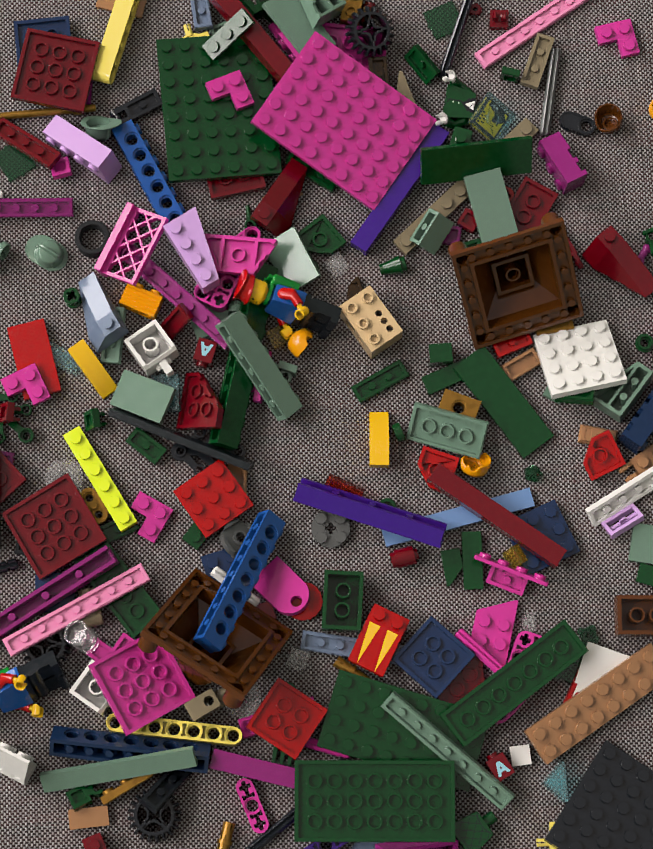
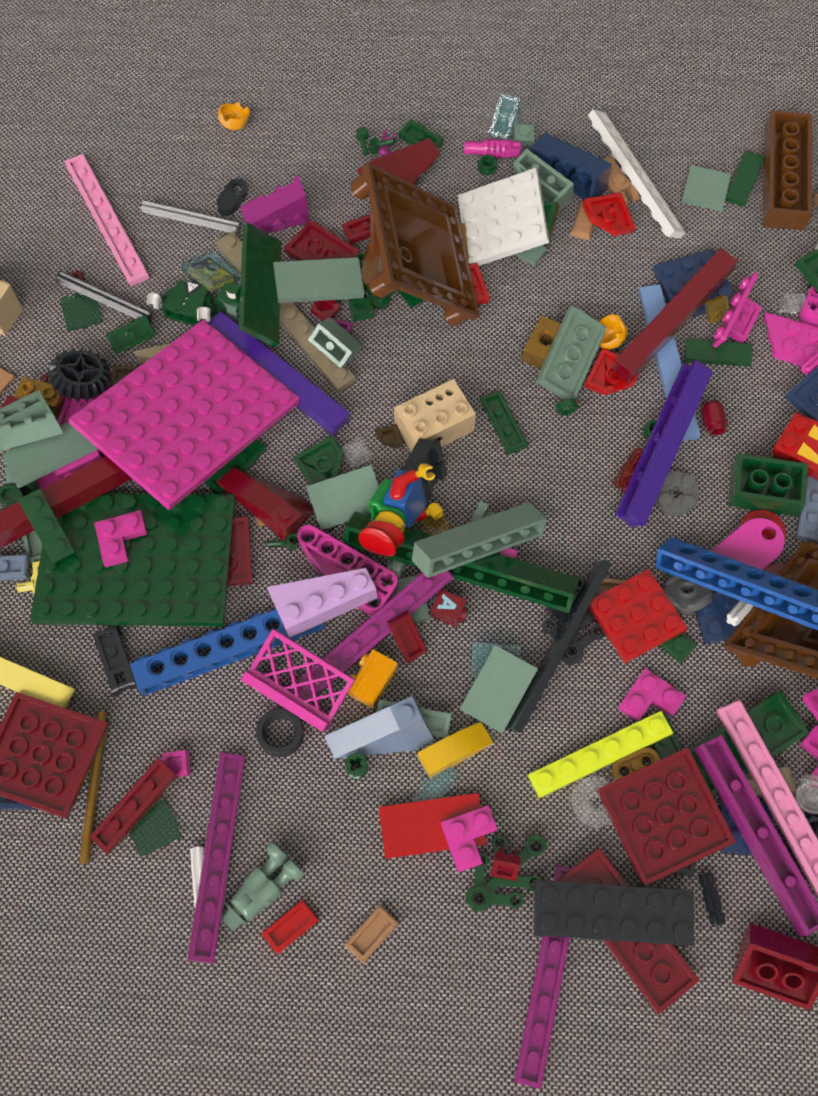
camera: 80 degrees left, 10 degrees down
(46, 252) = (287, 797): sand green piece -> none
(82, 148) = (154, 732): lavender wedge -> none
(92, 419) = (522, 755): dark green tile -> none
(99, 126) = (131, 706): sand green piece -> none
(146, 446) = (561, 692): dark green plate -> none
(152, 349) = (440, 668): white hinge -> none
(199, 405) = (518, 618): dark red plate -> none
(238, 253) = (334, 544): dark pink wing -> none
(298, 341) = (450, 496): light orange hair -> none
(378, 439) = (575, 428): yellow slope -> none
(394, 266) = (368, 388): dark green cone -> none
(440, 354) = (481, 351): dark green panel -> none
(441, 379) = (503, 350): dark green tile -> none
(451, 564) = (725, 373): dark green tile -> none
(498, 19) = (94, 255): dark red tile -> none
(503, 402) = (544, 297): dark green tile -> none
(510, 74) = (162, 249): dark green tile -> none
(521, 364) = (498, 279): medium nougat tile -> none
(532, 473) = (623, 282): clear green plate -> none
(537, 61) = (152, 223): dark tan plate -> none
(588, 630) = (801, 249): clear green plate -> none
(608, 118) = (233, 163): reddish brown hair -> none
(619, 32) = (140, 143): dark pink plate -> none
(624, 523) = (690, 219): lavender tile -> none

